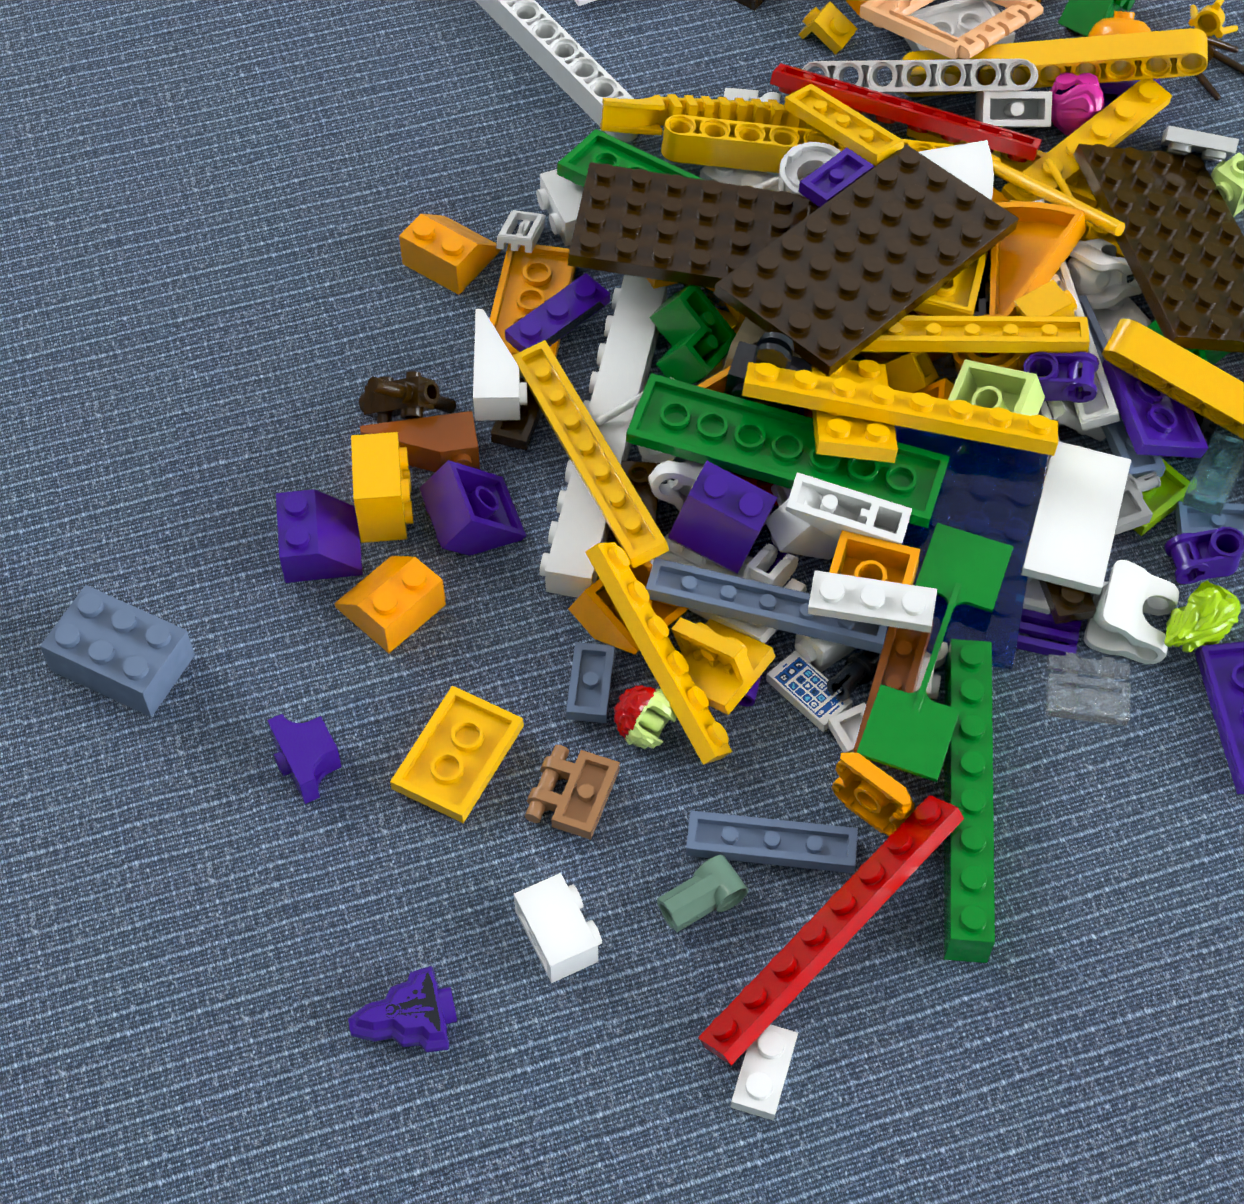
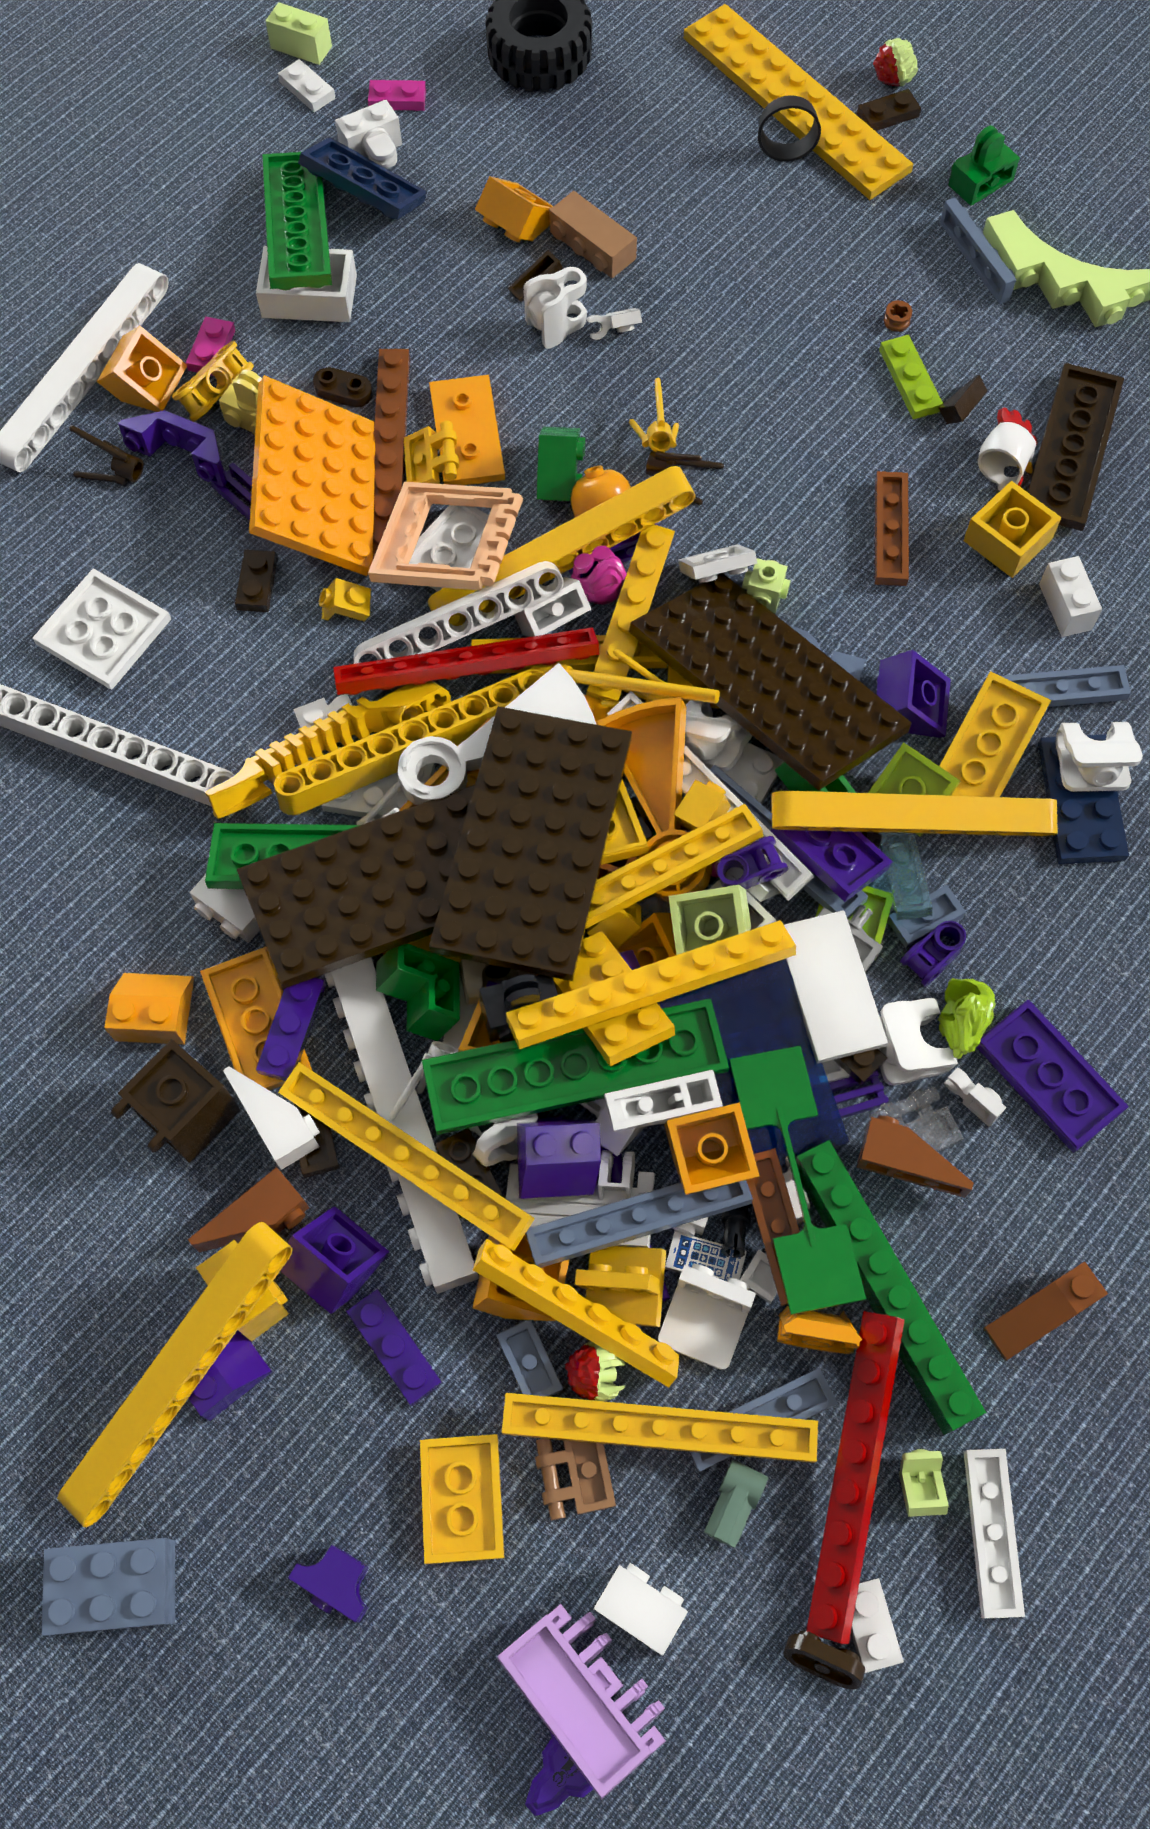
camera: 30 degrees left, 10 degrees up
(280, 505) = (174, 1374): none -> yellow beam
(394, 600) = (314, 1386): light orange slope -> none
(403, 397) = (212, 1186): dark brown piece -> none
(422, 315) = (178, 1102): none -> dark brown container
(452, 955) = (578, 1700): none -> lavender hinge
(479, 610) = (394, 1347): none -> dark purple plate
(505, 235) = (210, 971): white tile -> none
(676, 789) = (660, 1427): none -> yellow plate
(699, 1067) = (826, 1662): none -> dark brown plate
(780, 730) = (706, 1316): none -> white bracket
(834, 177) = (459, 773): dark purple plate -> none
(843, 124) = (430, 710): yellow plate -> none
(872, 601) = (730, 1174): white plate -> none
(895, 976) = (923, 1483): none -> yellowish green bracket
(936, 1061) = (993, 1534): none -> white plate
(1055, 692) = (903, 1155): none -> dark orange slope
(1119, 904) = (1045, 1311): none -> dark orange slope
(1168, 698) = (981, 1101): none -> white plate

